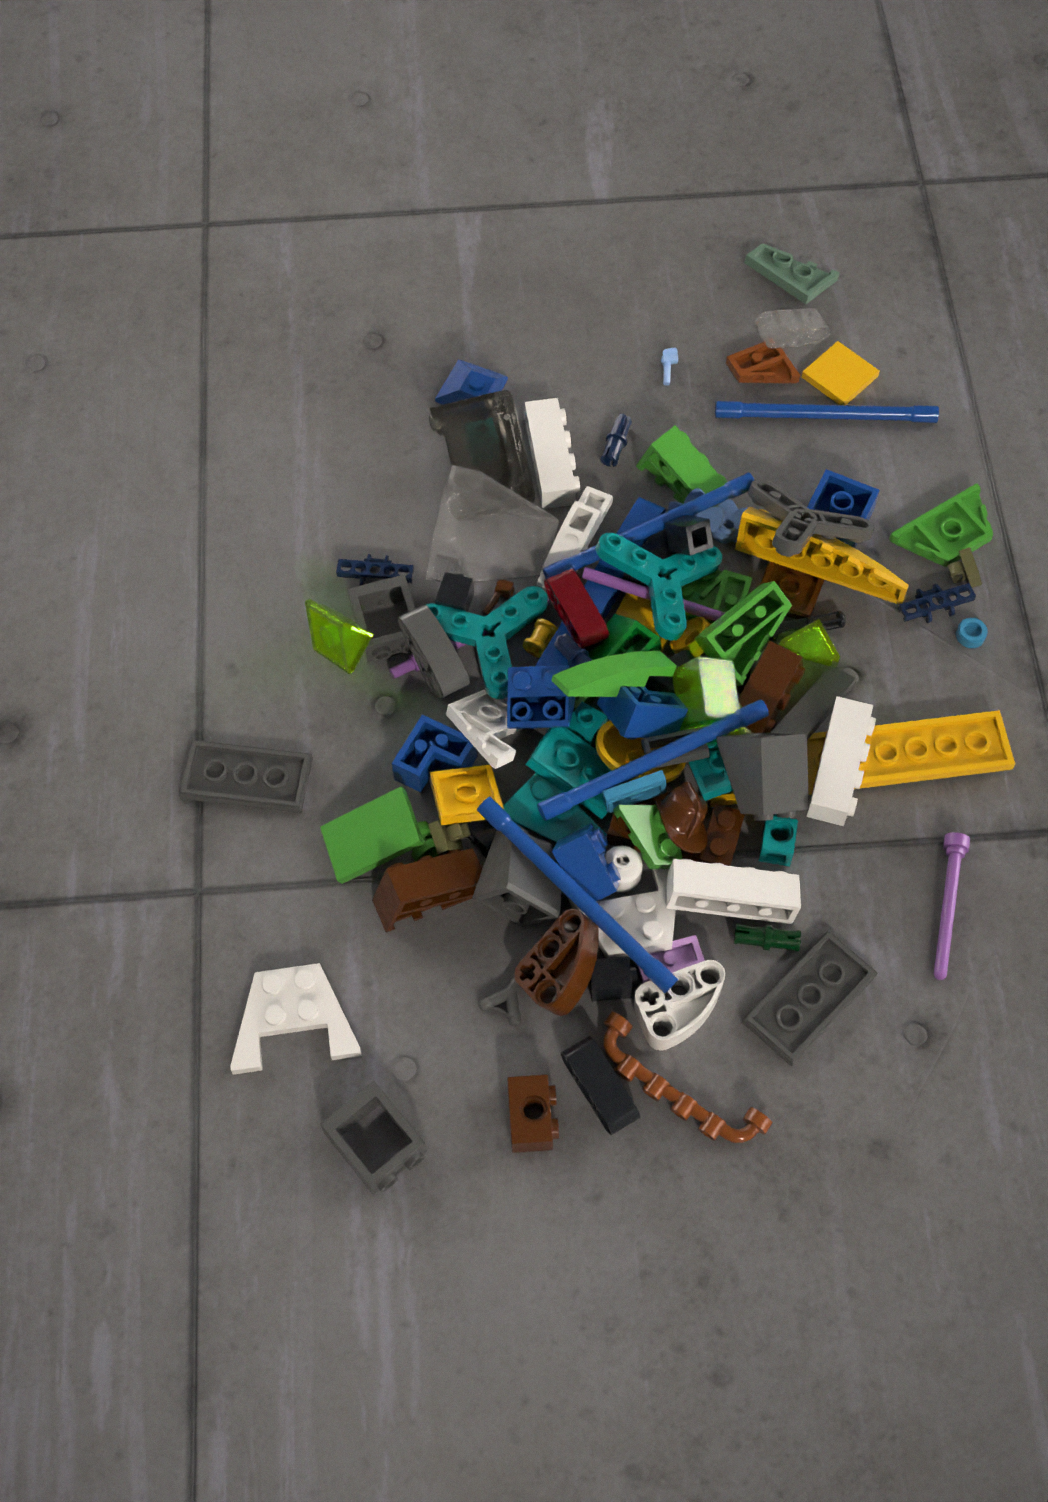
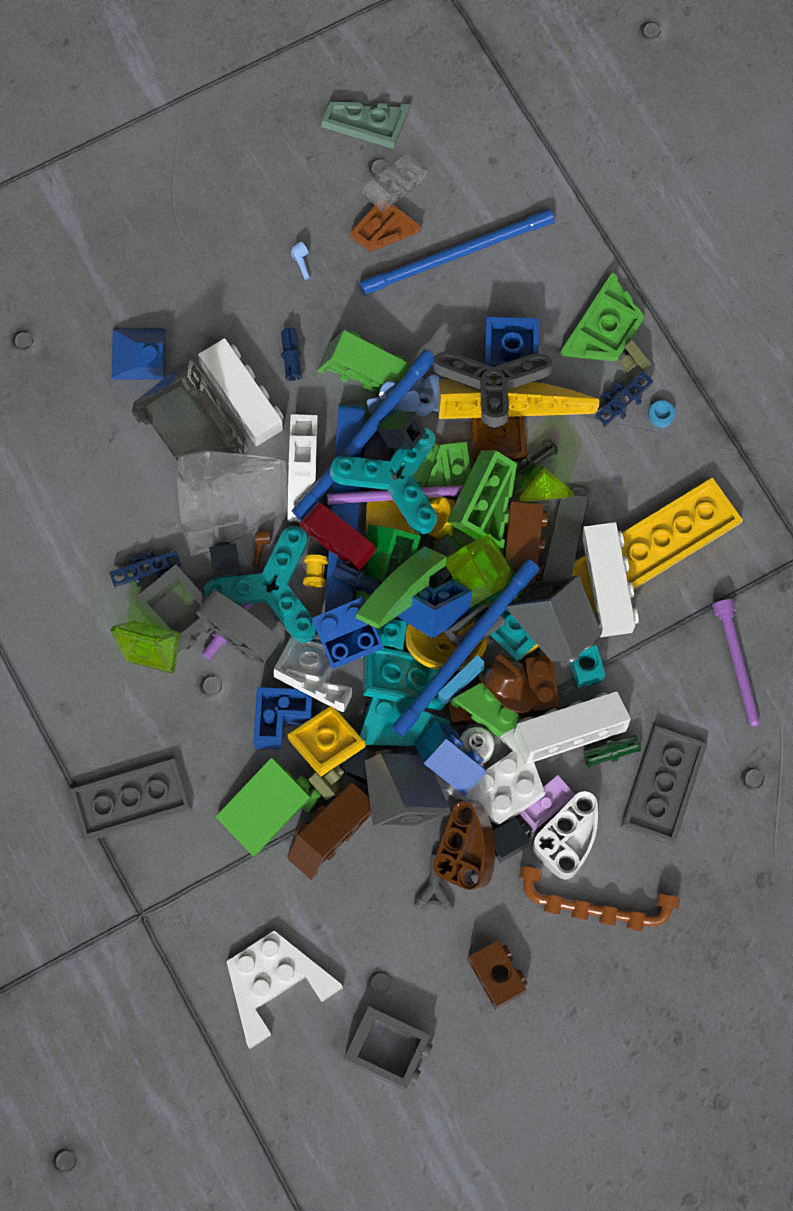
camera: 30 degrees left, 10 degrees up
(600, 1085) = (538, 928): black beam -> none
(651, 966) = (376, 757): blue piece -> none
(840, 374) = (453, 208): yellow tile -> none

